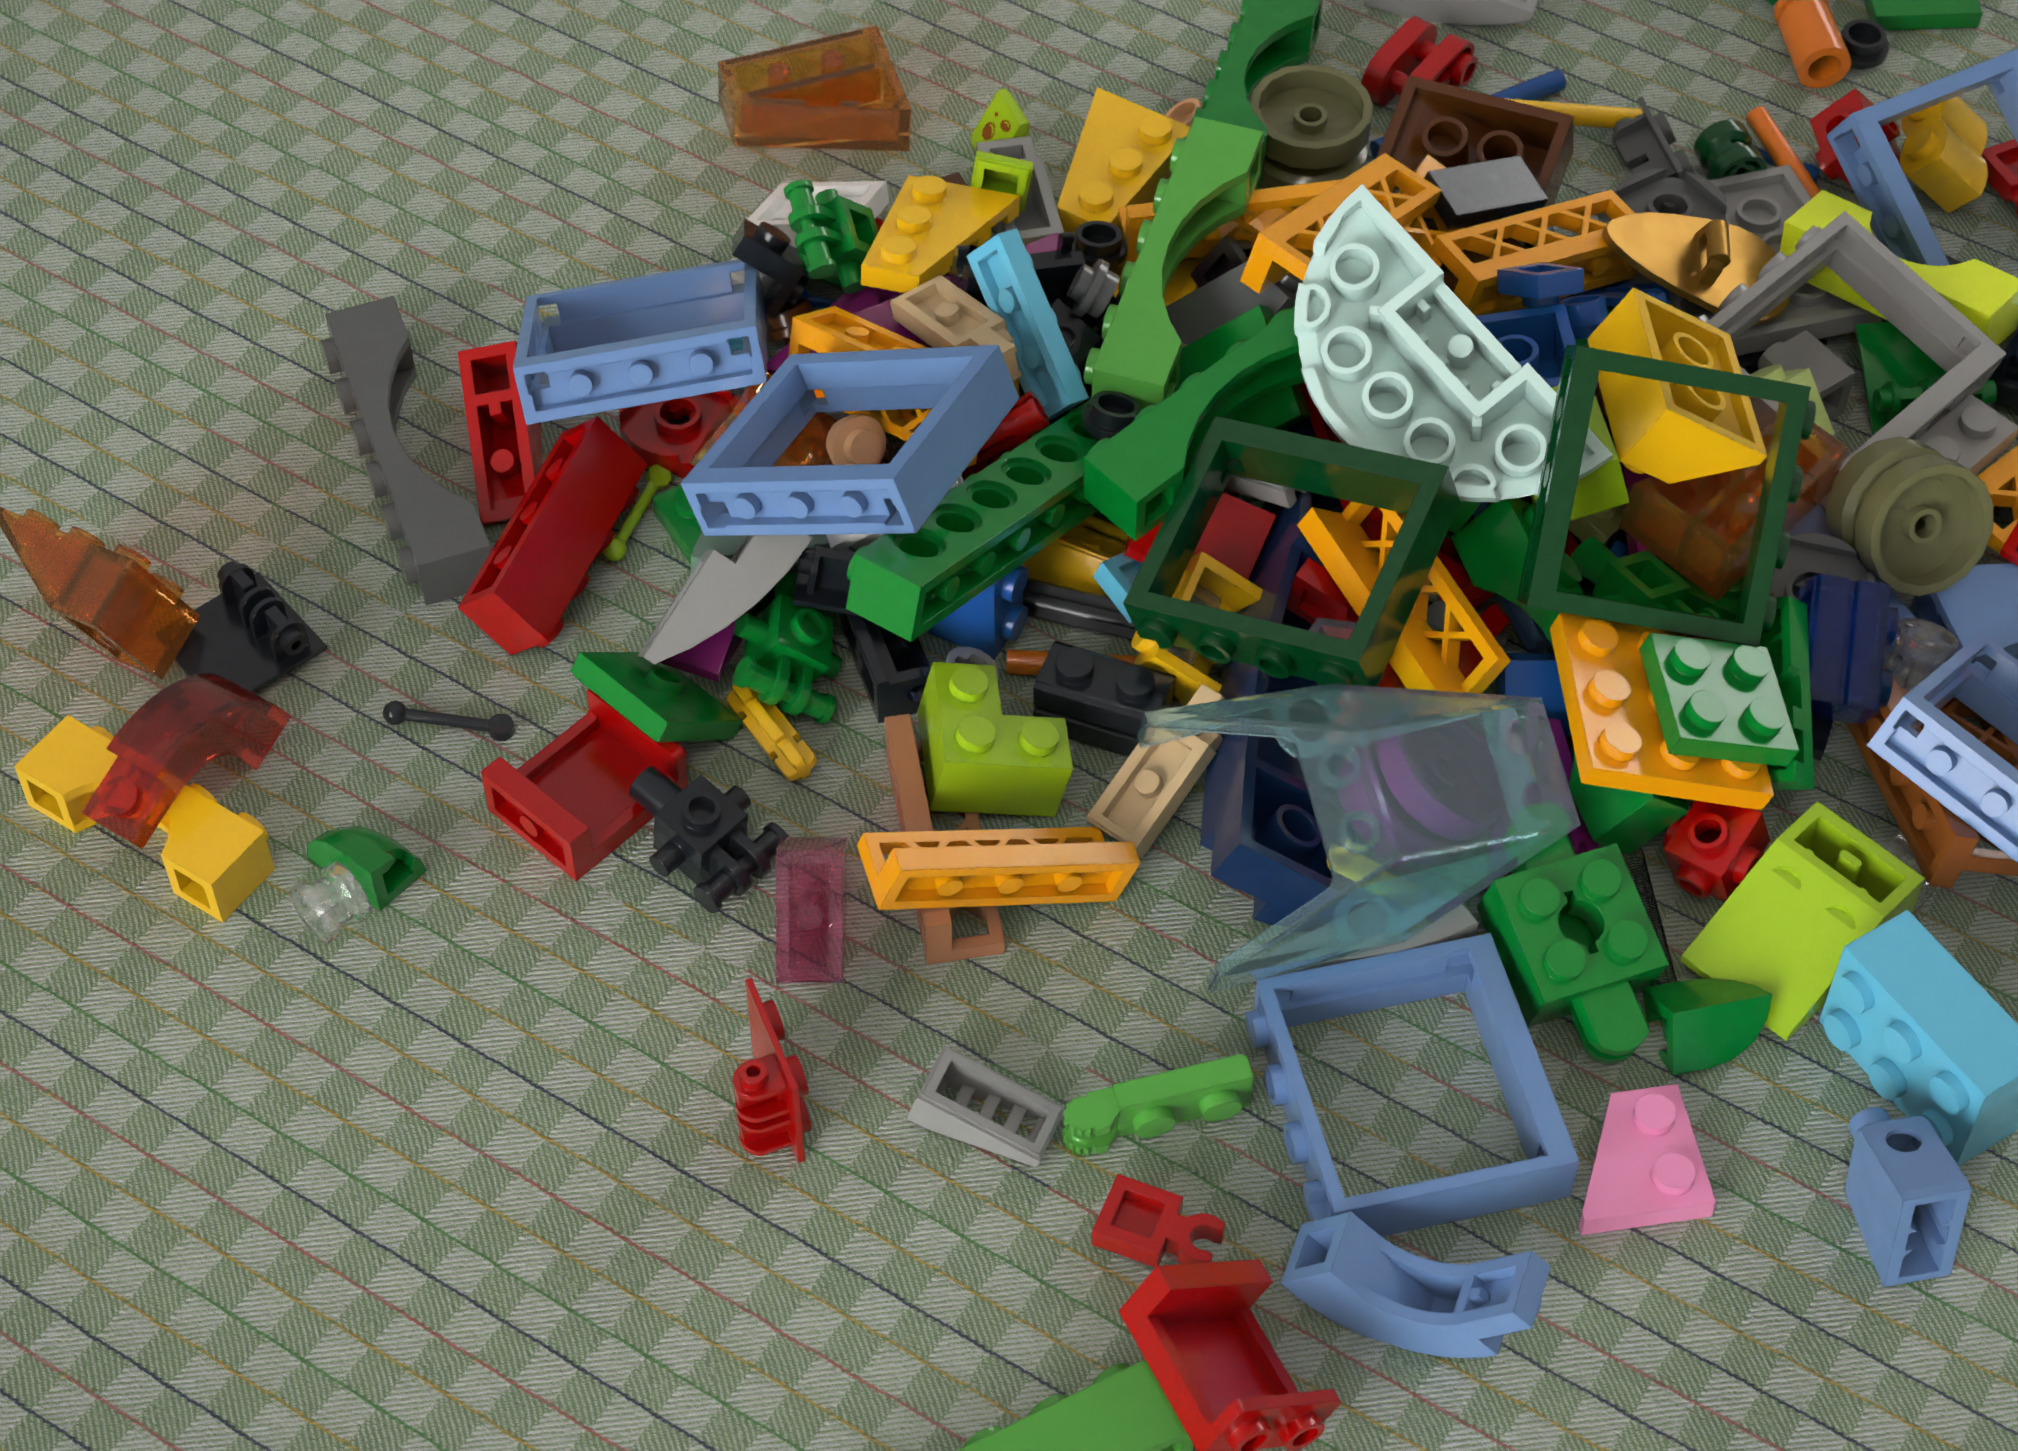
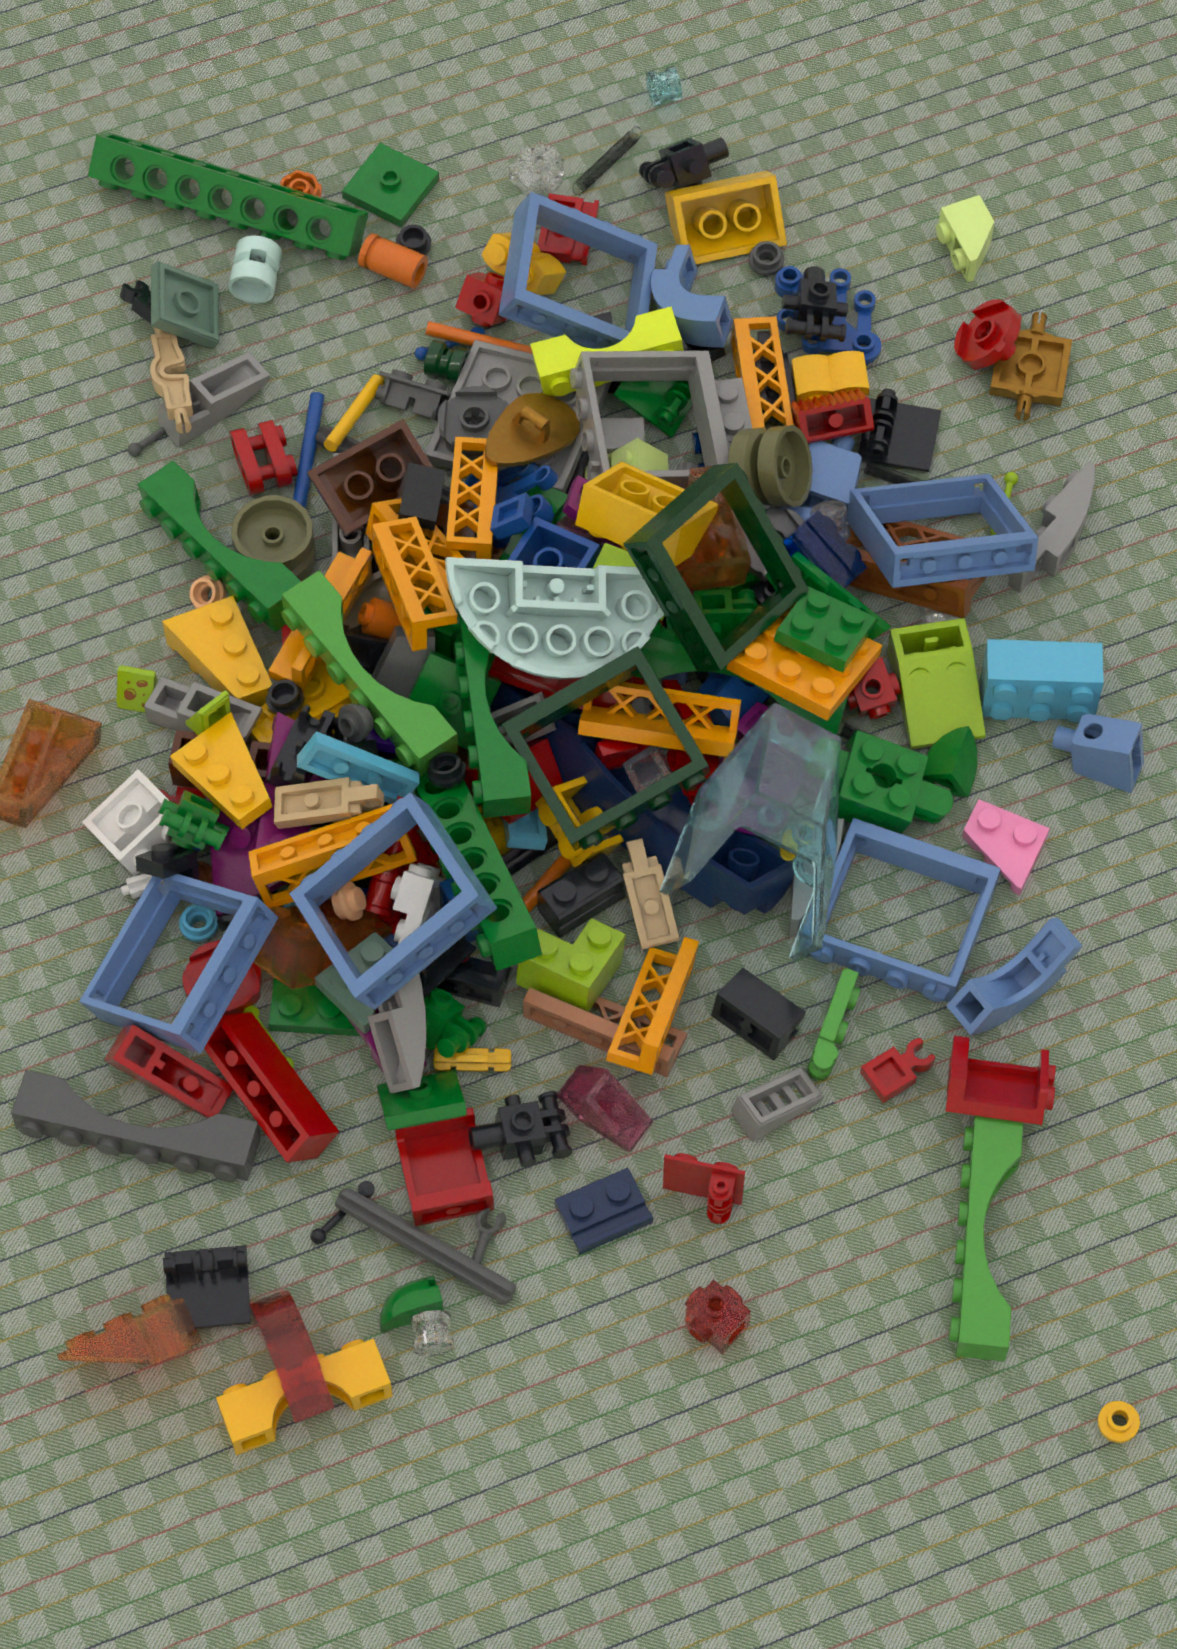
camera: 55 degrees left, 10 degrees up
(456, 830) = (425, 1245): none -> dark grey axle
(539, 874) = (486, 1232): none -> dark grey hand
(581, 1213) = (716, 1315): none -> clear red brick
(661, 1000) = (603, 1211): none -> dark blue plate
(1100, 1003) = (757, 1013): none -> black hinge

